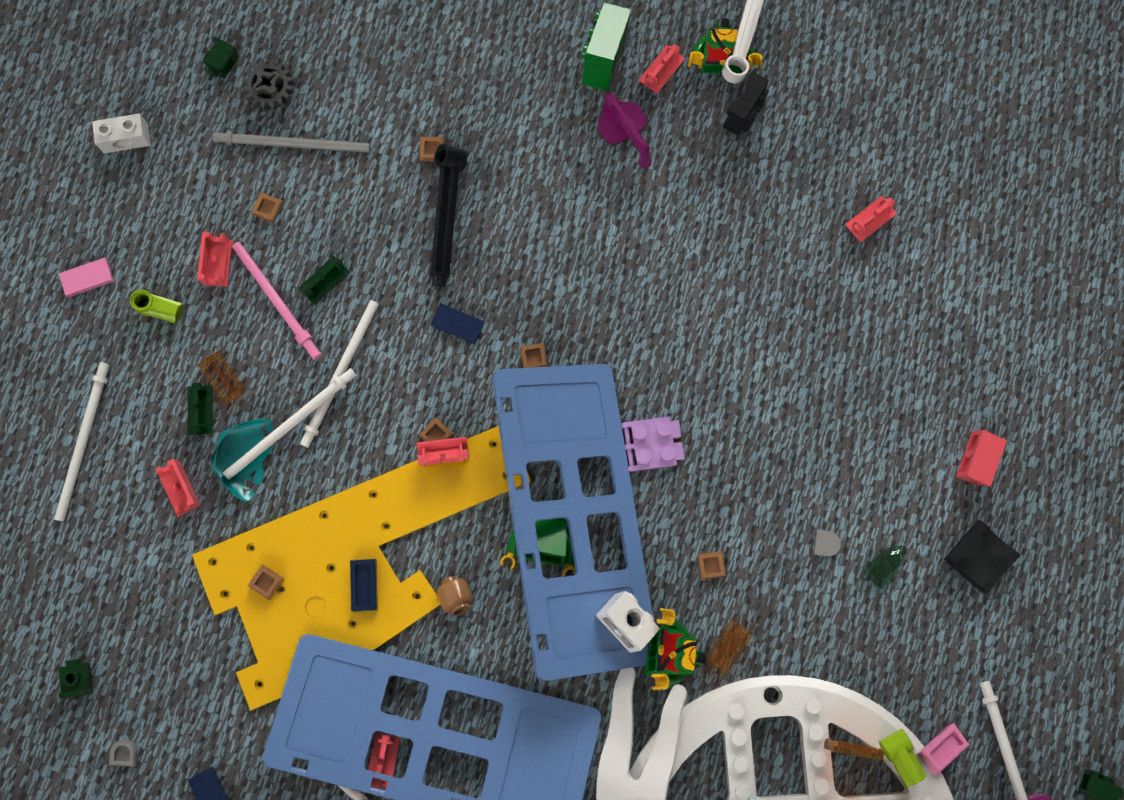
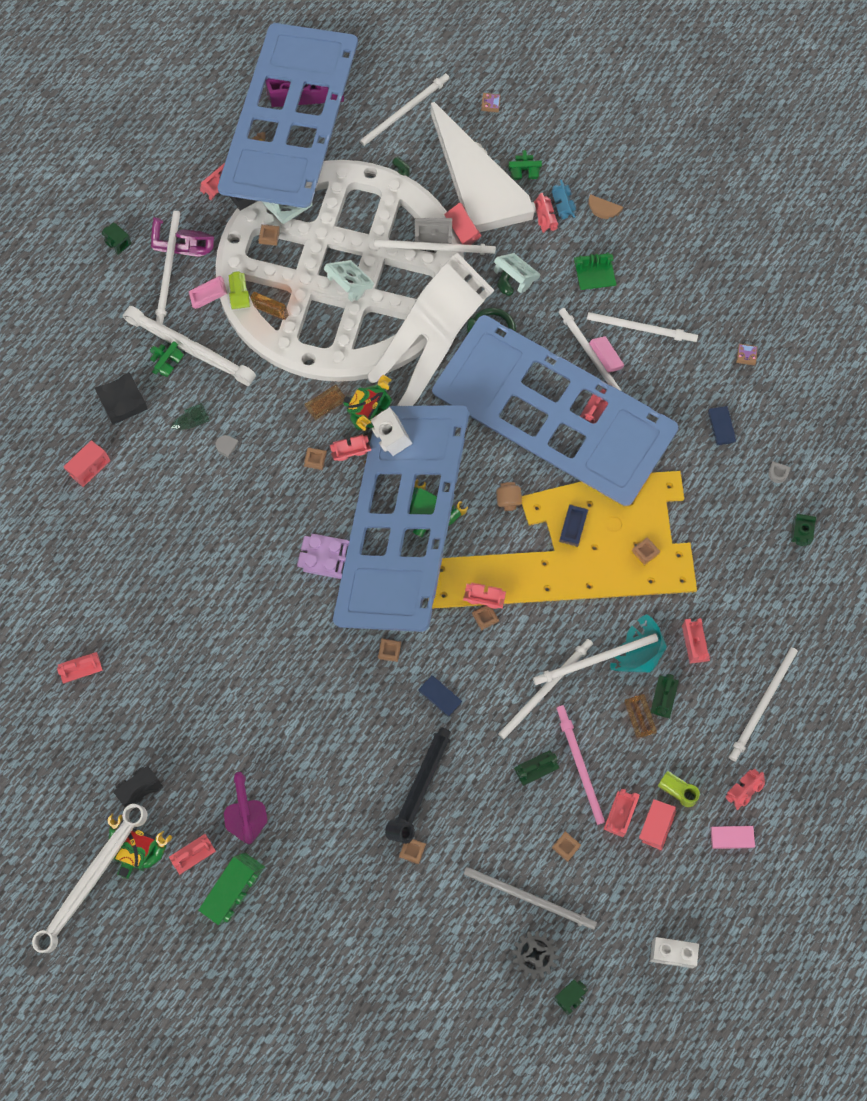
camera: 165 degrees left, 10 degrees down
(76, 342) = (752, 783): none -> coral hinge
(171, 260) = (657, 824): none -> coral hinge
(678, 584) = (342, 451): none -> coral hinge
(934, 662) = (242, 374): none -> white piece
(950, 644) = (172, 353): none -> green hips

